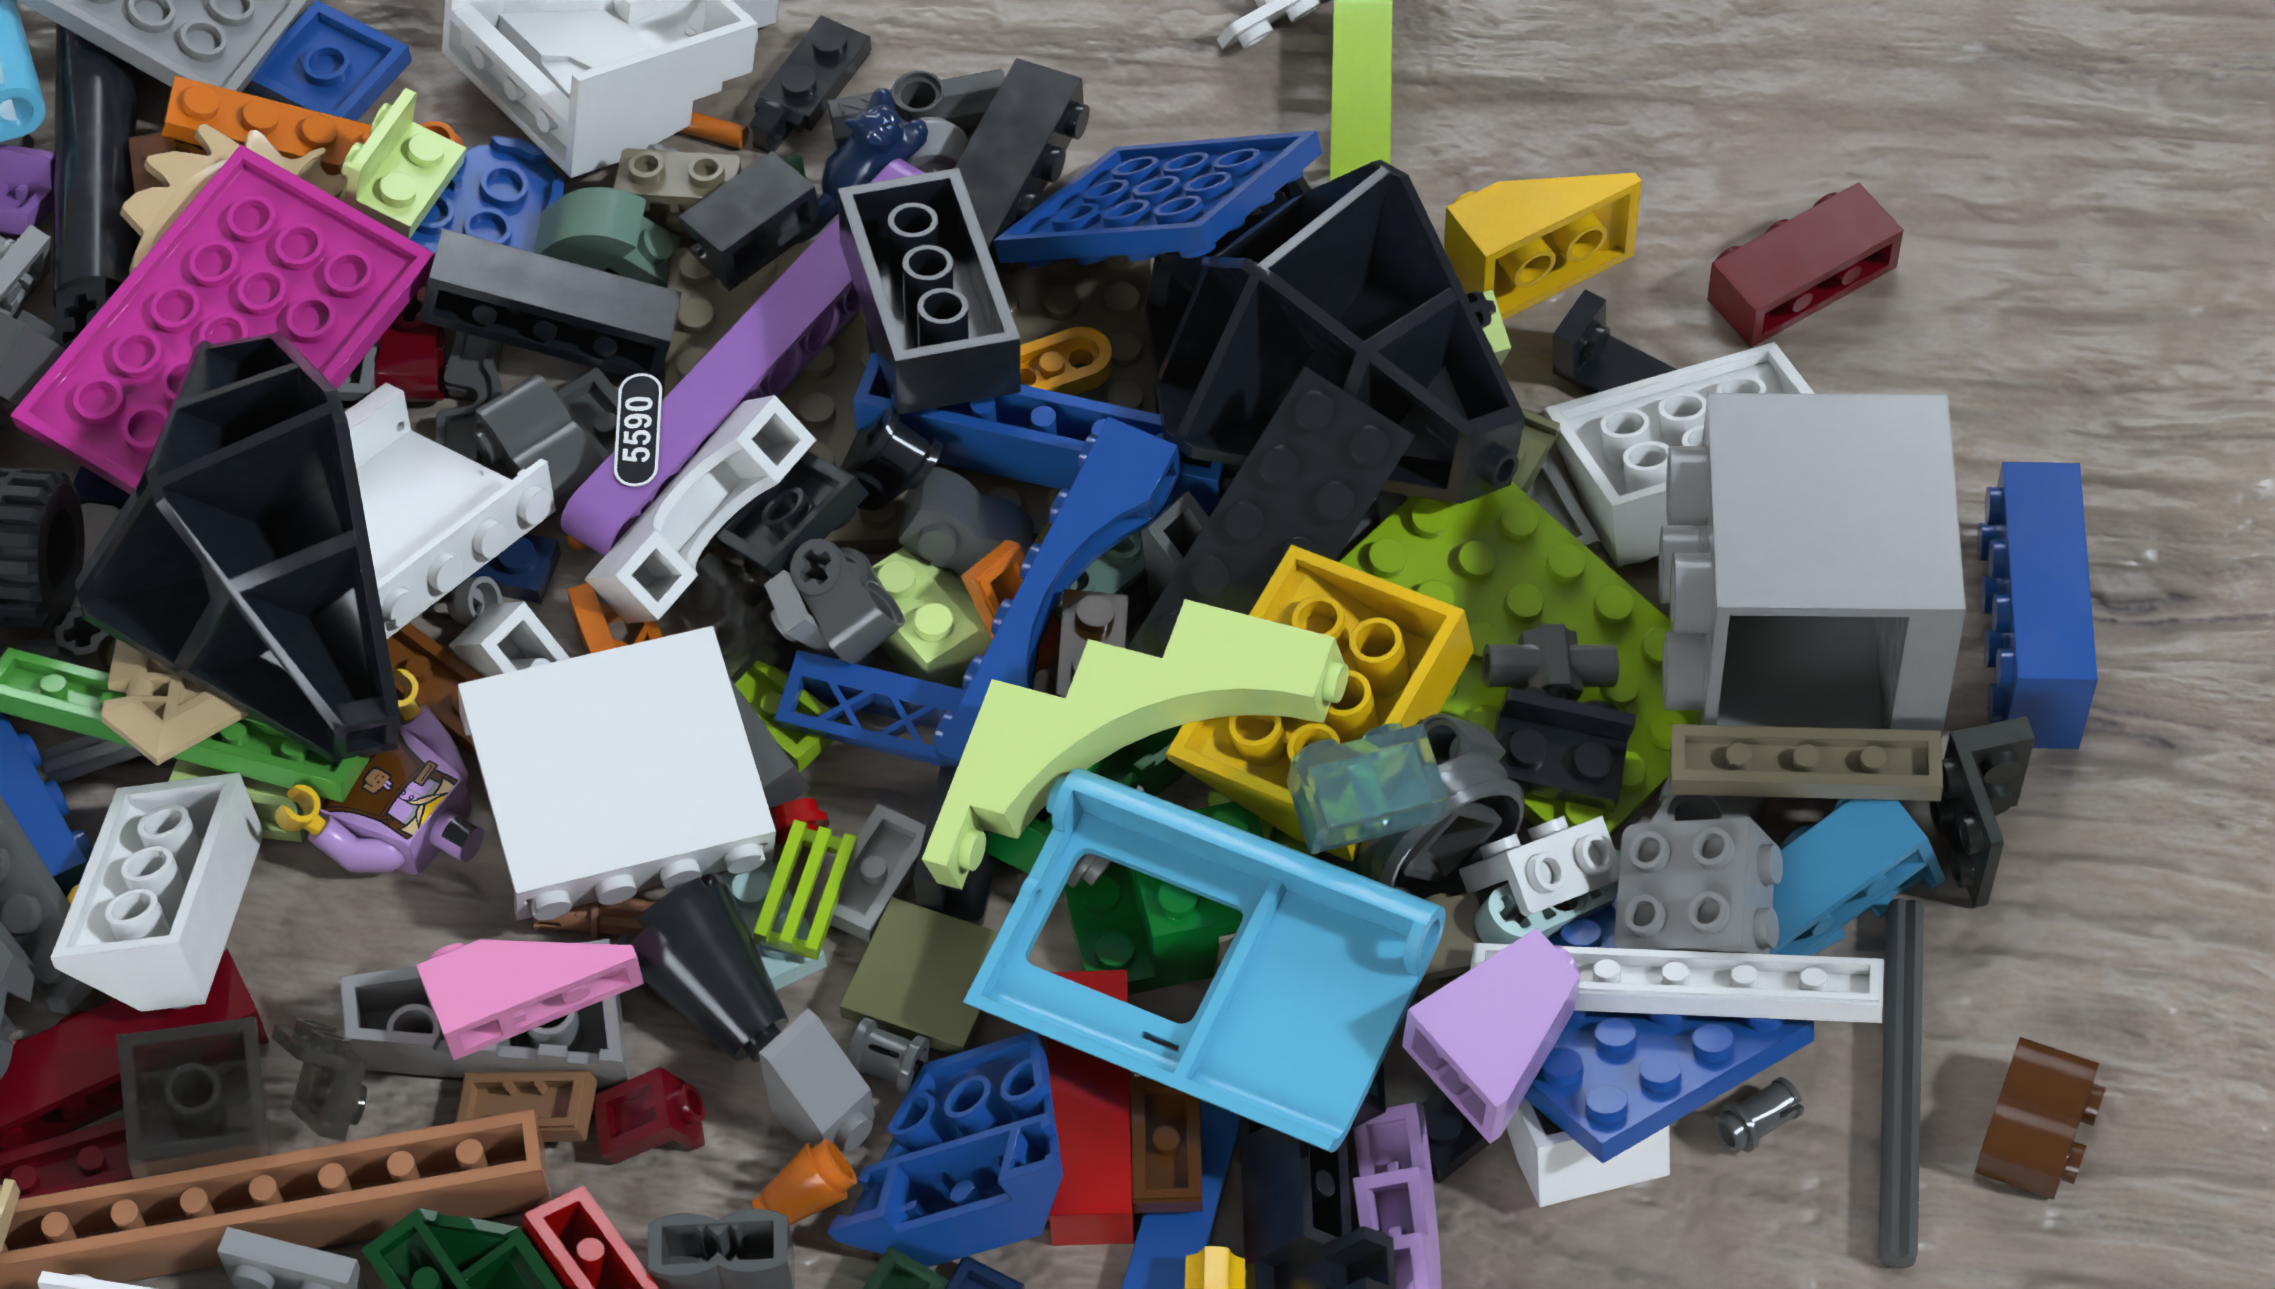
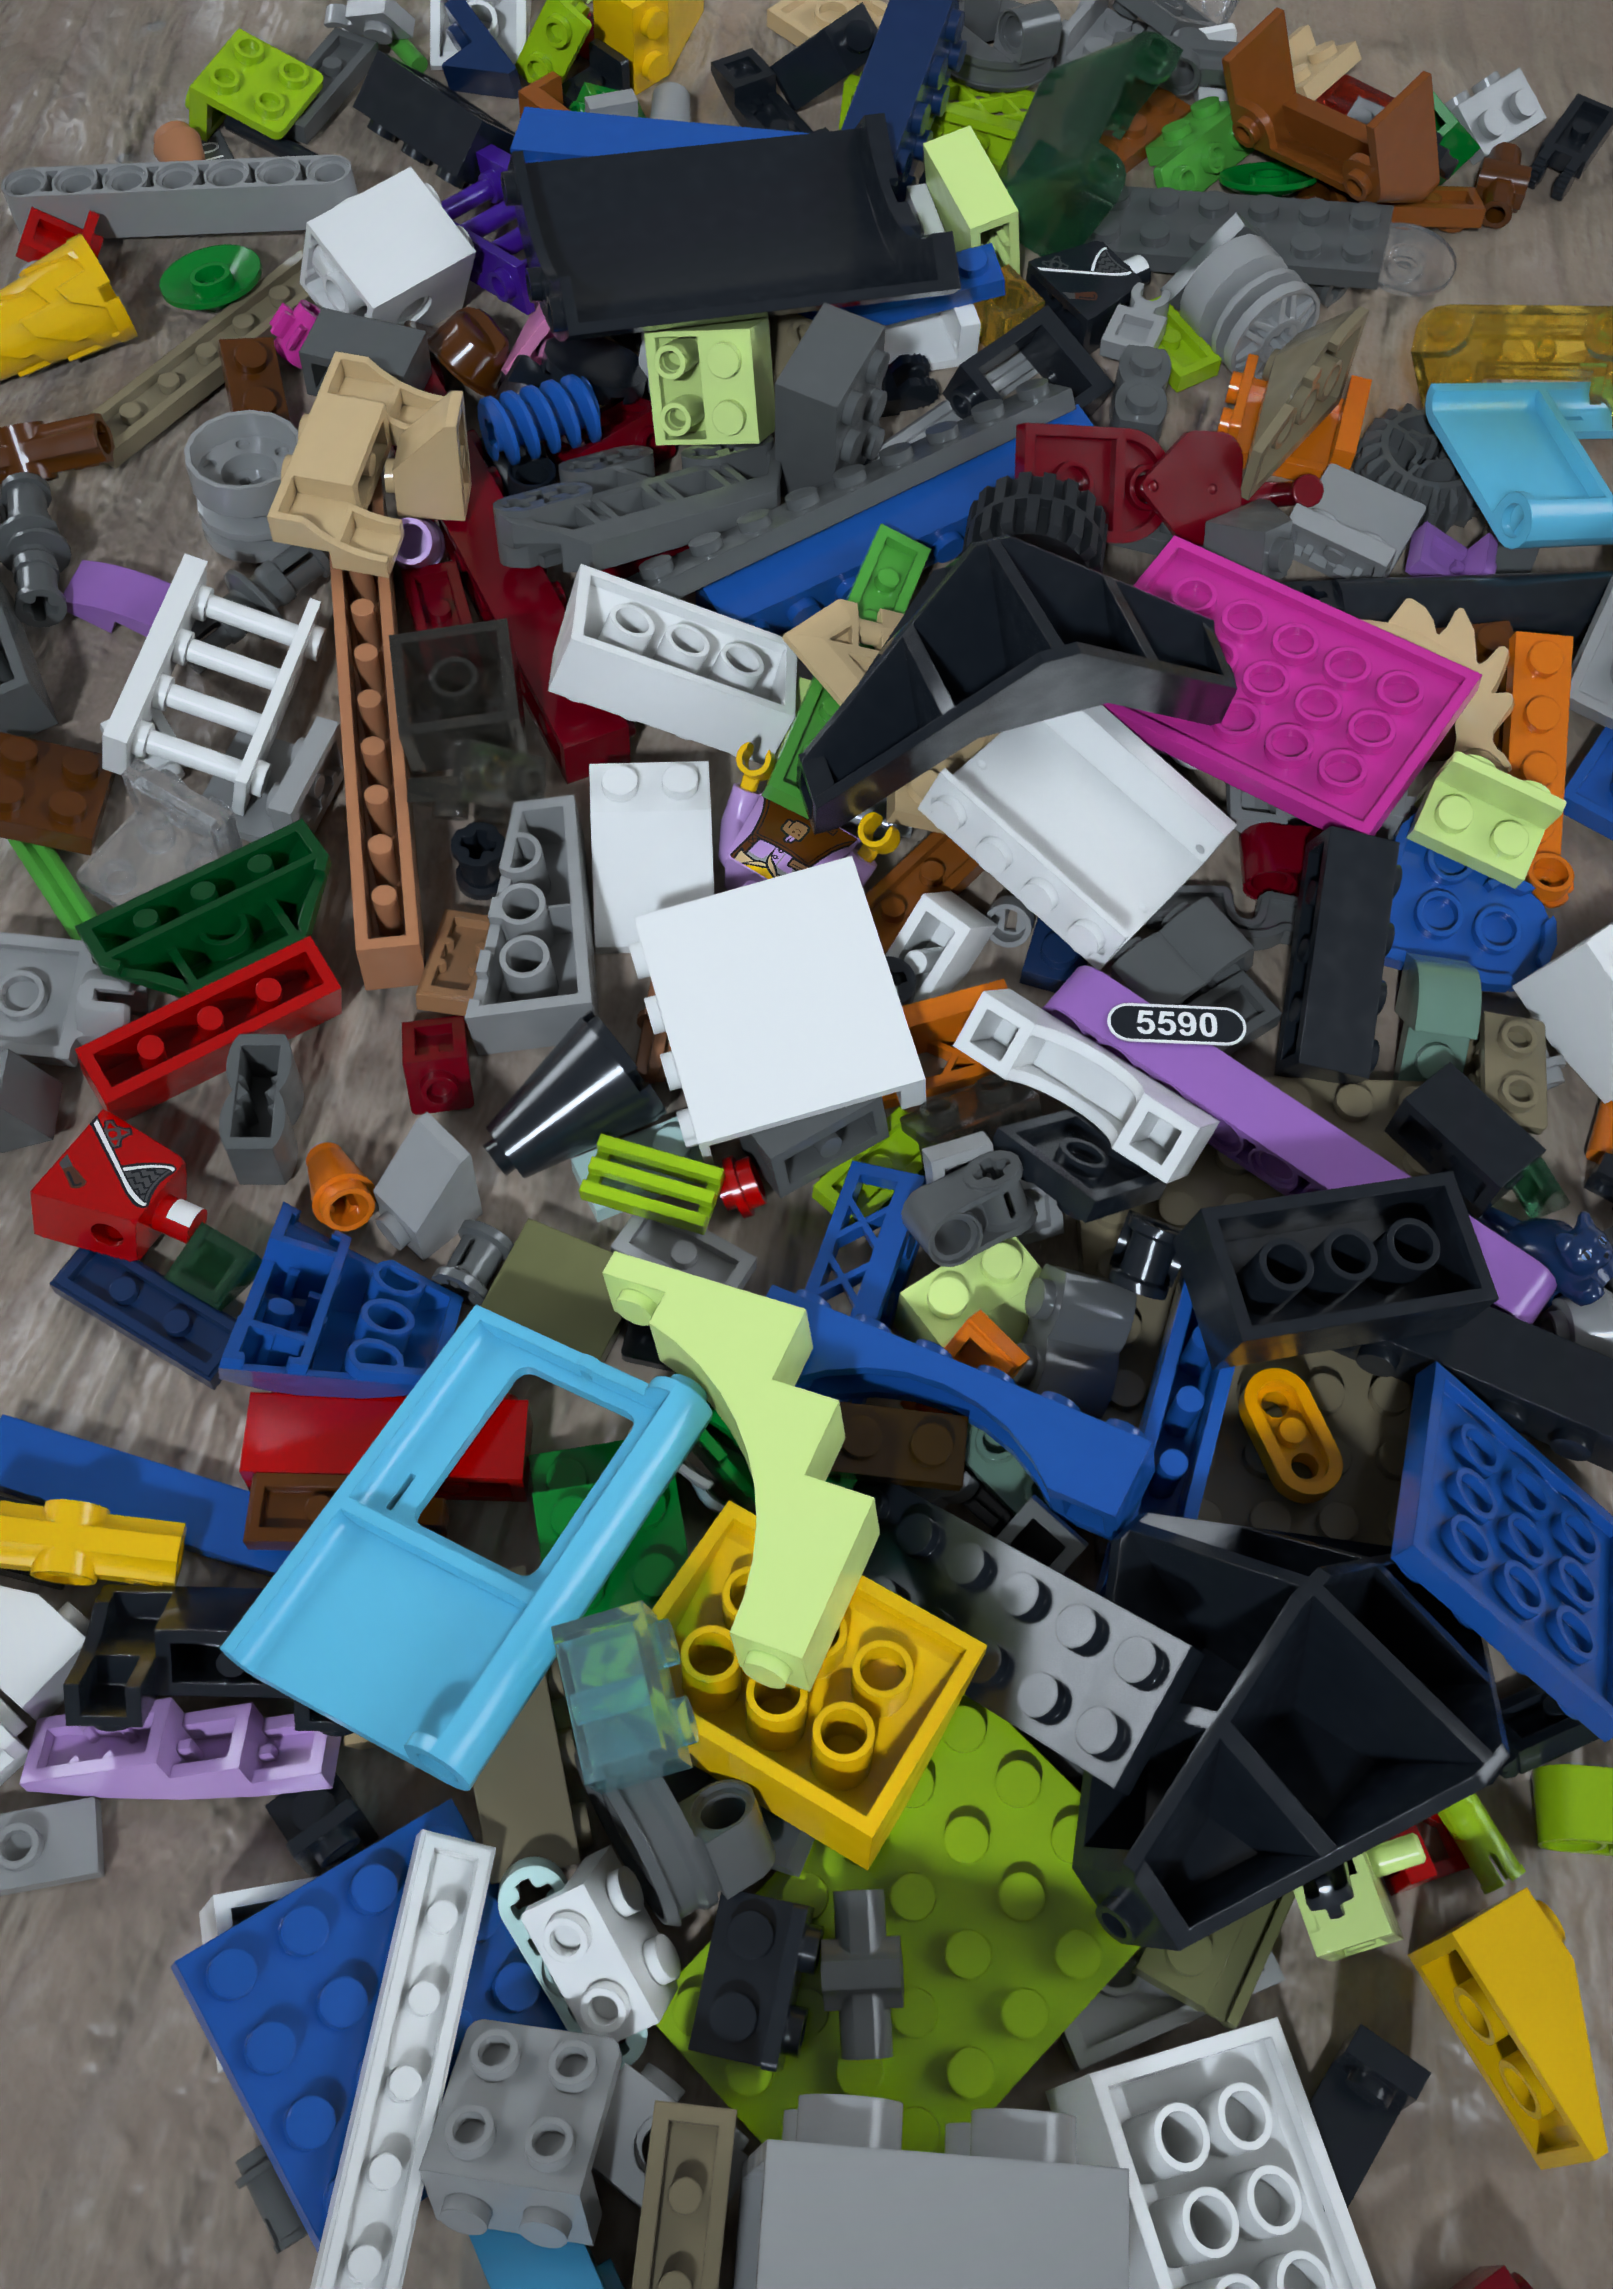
camera: 85 degrees right, 5 degrees up
(377, 916) = (647, 843): none -> white slope
(400, 1100) = (479, 854): none -> black bush
(509, 986) = (532, 908): bright pink slope -> none
(1495, 1028) = (324, 1843): lavender slope -> none

